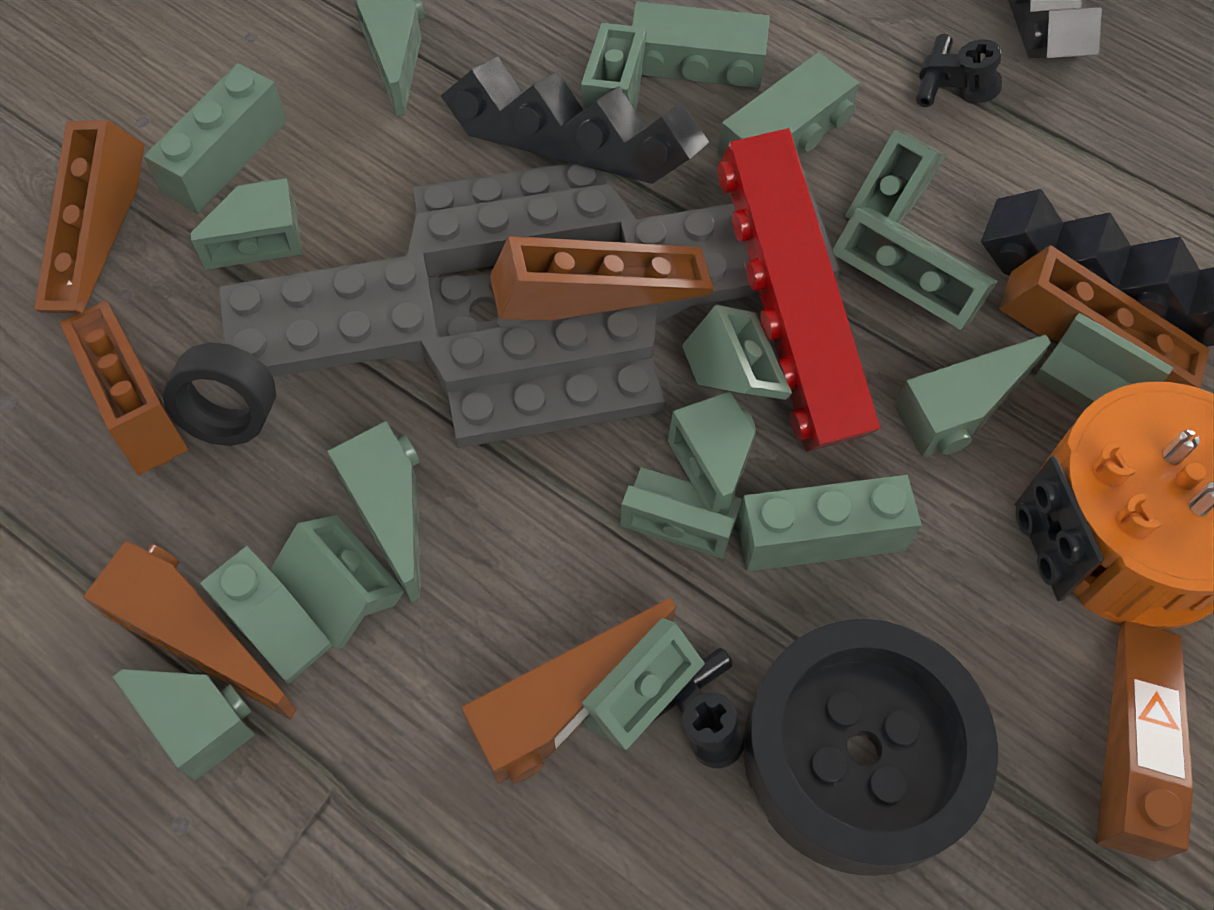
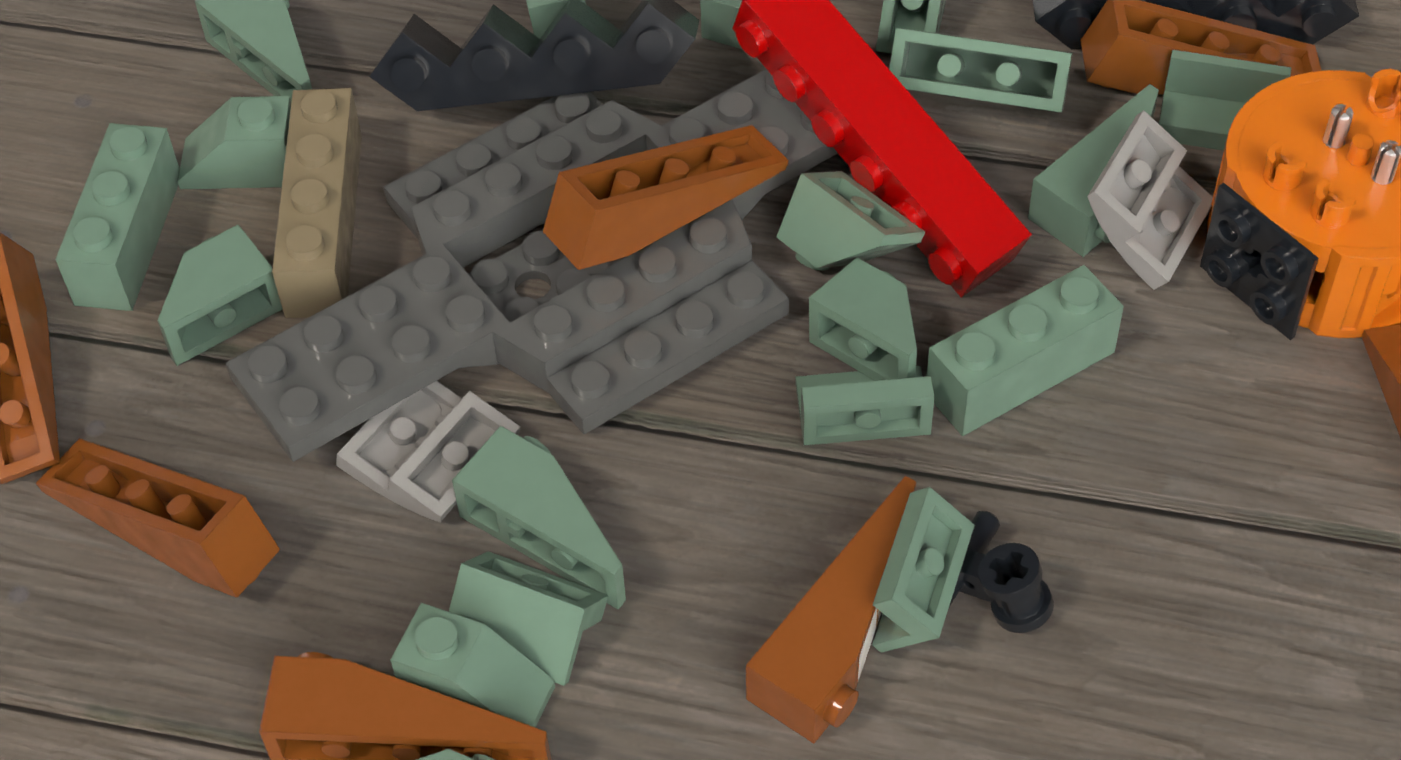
camera: 20 degrees left, 10 degrees down
(232, 368) = (285, 429): black tyre -> none
(336, 117) = (238, 145): none -> sand green slope
(336, 405) = (420, 447): none -> light grey slope
(358, 181) = (317, 201): none -> dark tan brick
(918, 712) = (1212, 491): black brick -> none
(993, 437) = (1149, 201): none -> light grey slope

